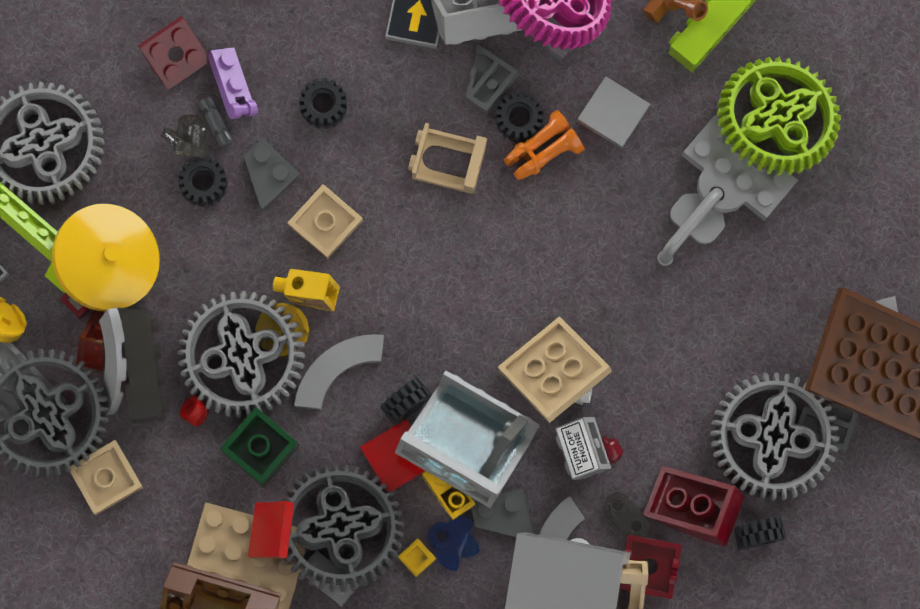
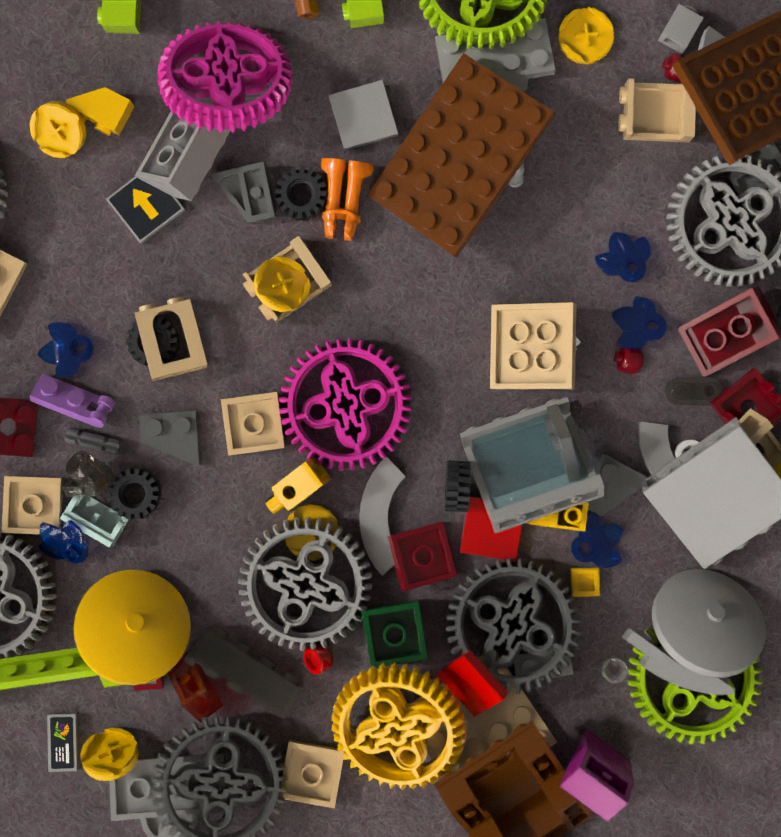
camera: 50 degrees left, 10 degrees up
(114, 363) = (231, 696): light grey tile -> none
(125, 161) = (63, 542): none -> clear blue plate
(133, 118) = (31, 502): none -> tan plate
(160, 169) = (95, 519): none -> light aqua hinge
(184, 505) = (398, 726): none -> yellow gear
(261, 47) = (62, 349): none -> clear blue plate
(333, 420) = (422, 556): none -> dark red plate
(336, 143) = (184, 310): none -> tan panel
(383, 305) = (296, 418): none -> dark pink gear
(442, 156) = (281, 284): none -> yellow tile
(582, 448) = (614, 379): brick -> none
(638, 430) = (635, 321): none -> clear blue plate
(644, 200) = (461, 154): none -> reddish brown plate
(679, 379) = (623, 253): none -> clear blue plate
(799, 314) = (656, 112): none -> tan panel
(812, 220) = (586, 35): none -> yellow tile
(878, 280) = (680, 28): none -> light grey brick

